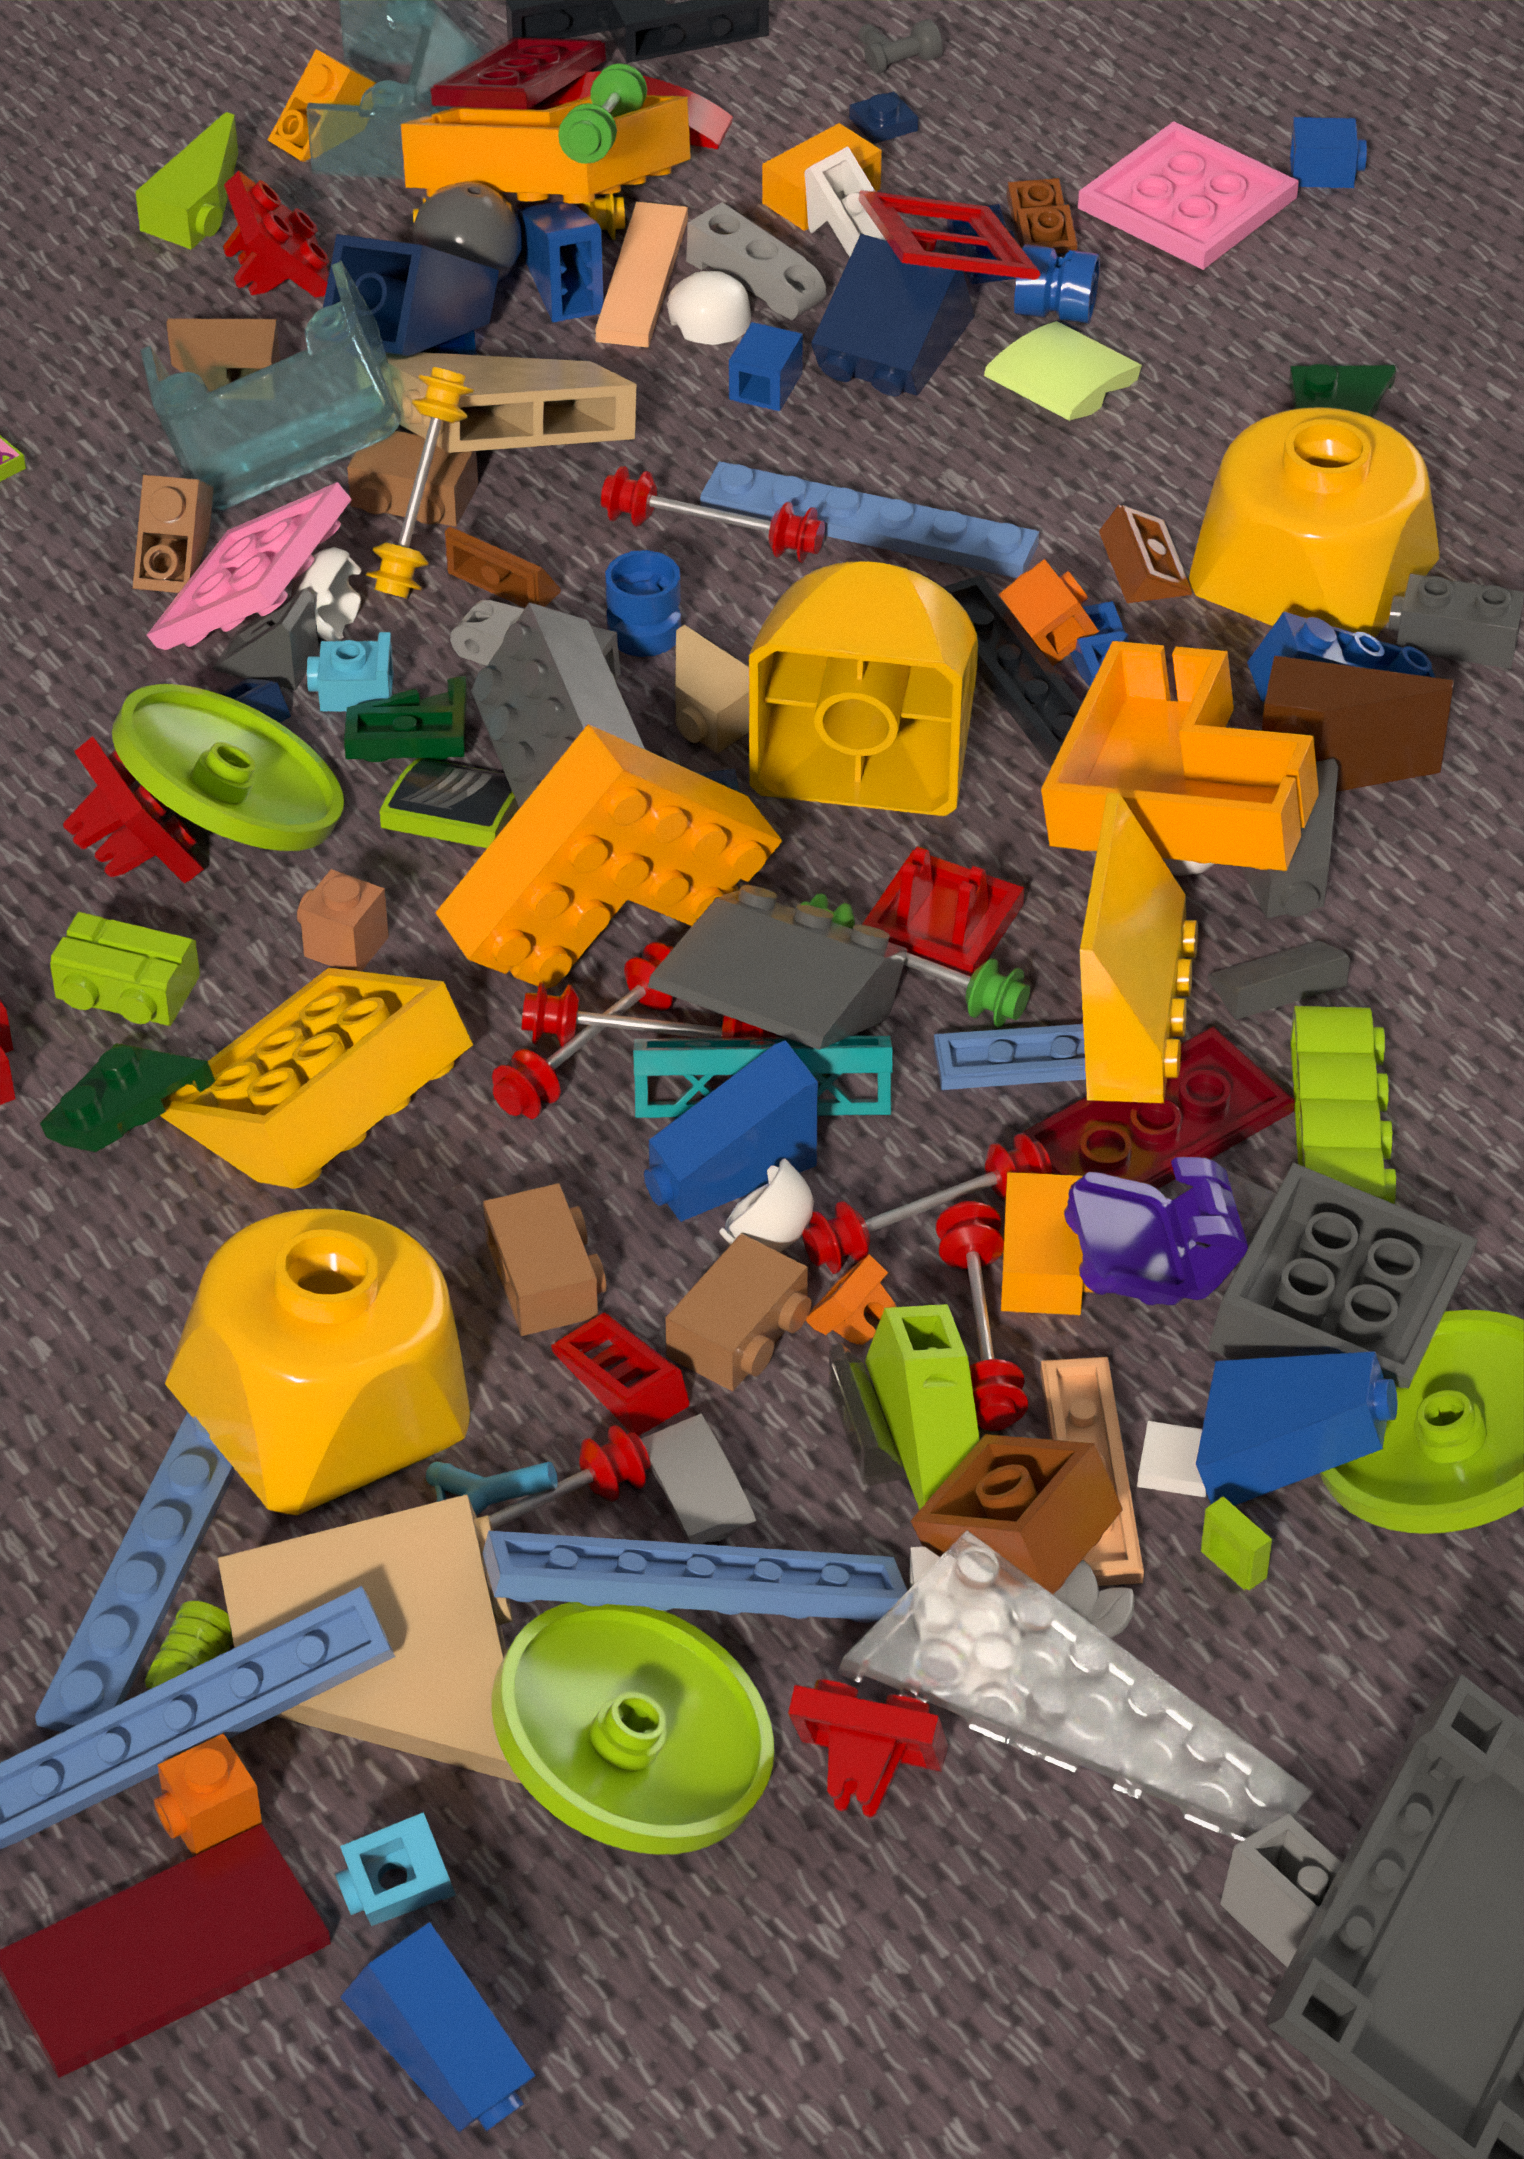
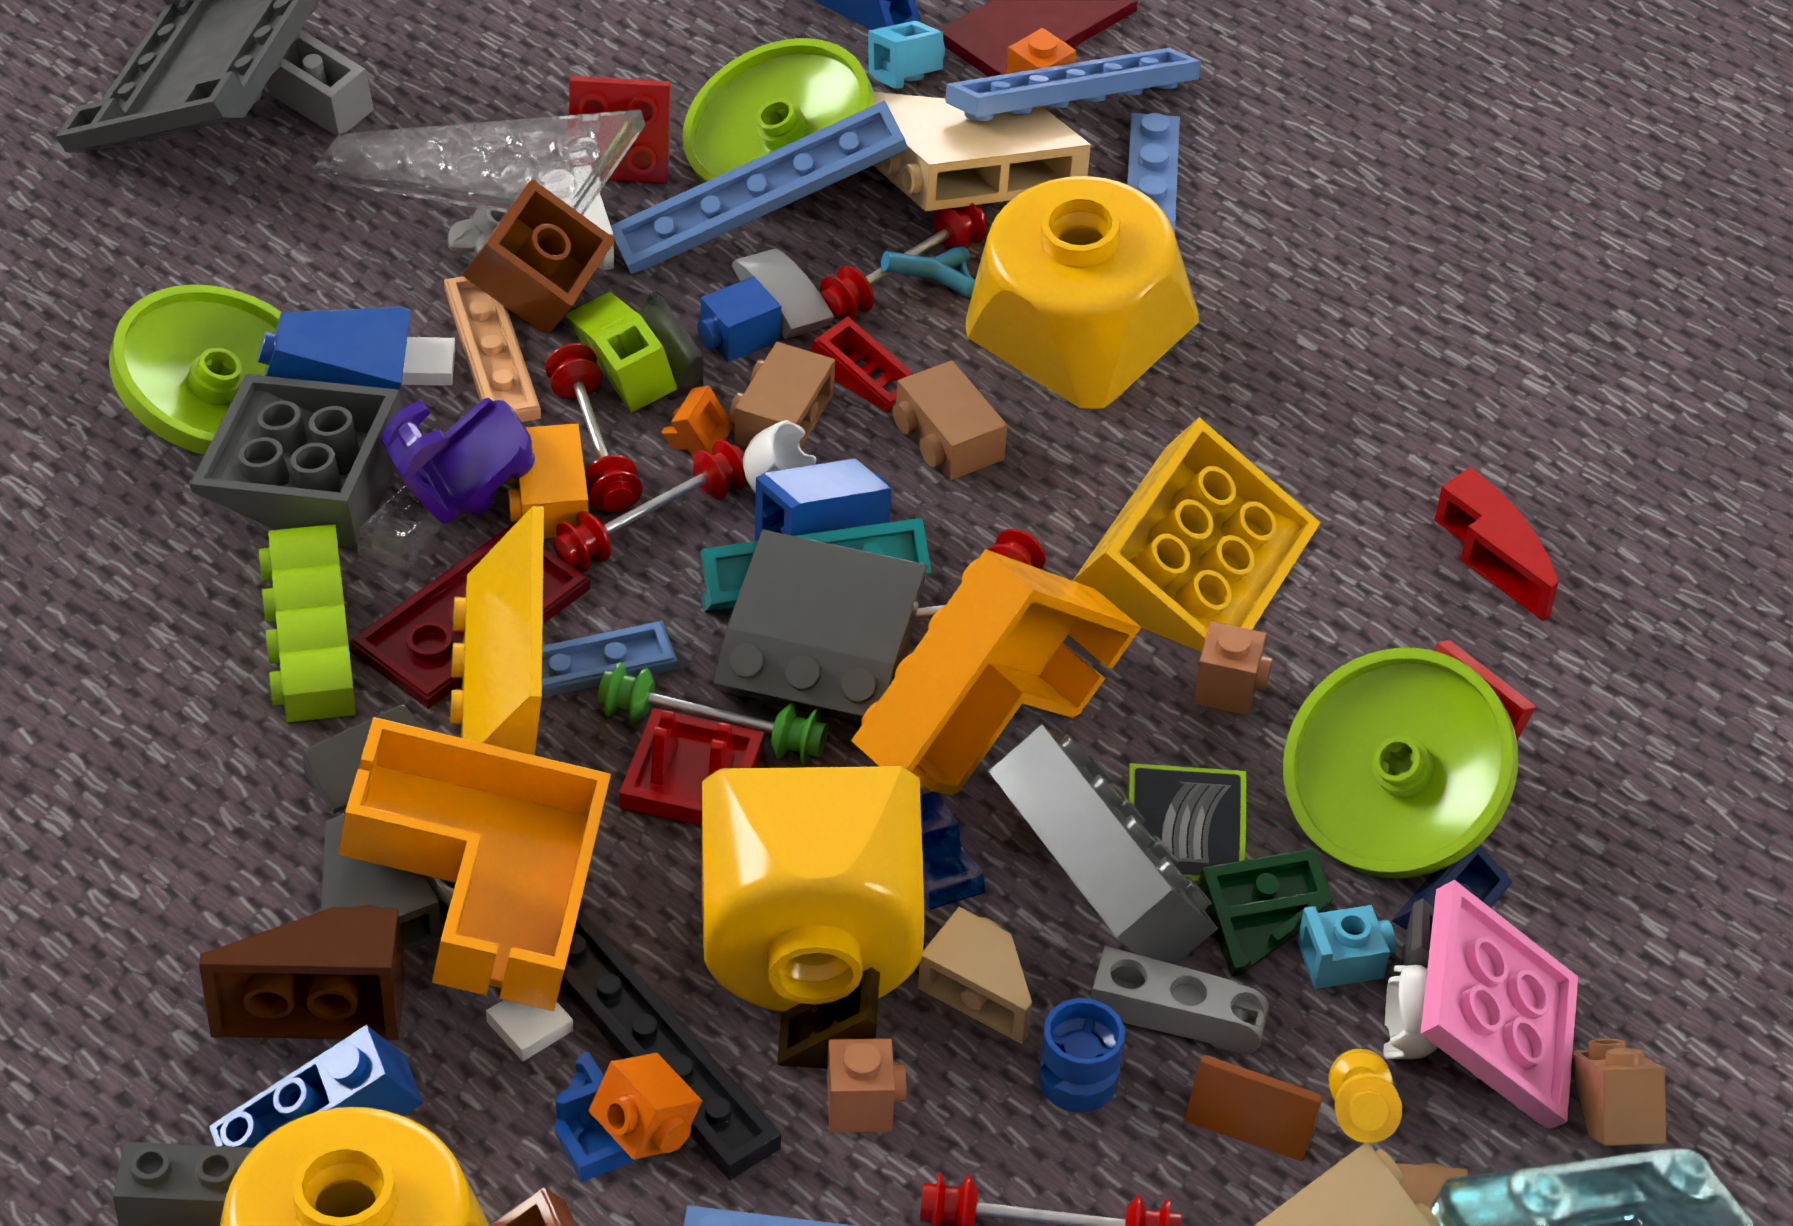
camera: 165 degrees right, 0 degrees up
(121, 1094) = (1342, 512): dark green wing -> none
(124, 969) = (1398, 608): lime brick -> none
(194, 1638) = (1102, 145): lime hinge -> none
(766, 1435) = (739, 319): none -> blue brick
(1235, 1544) = (374, 286): lime tile -> none

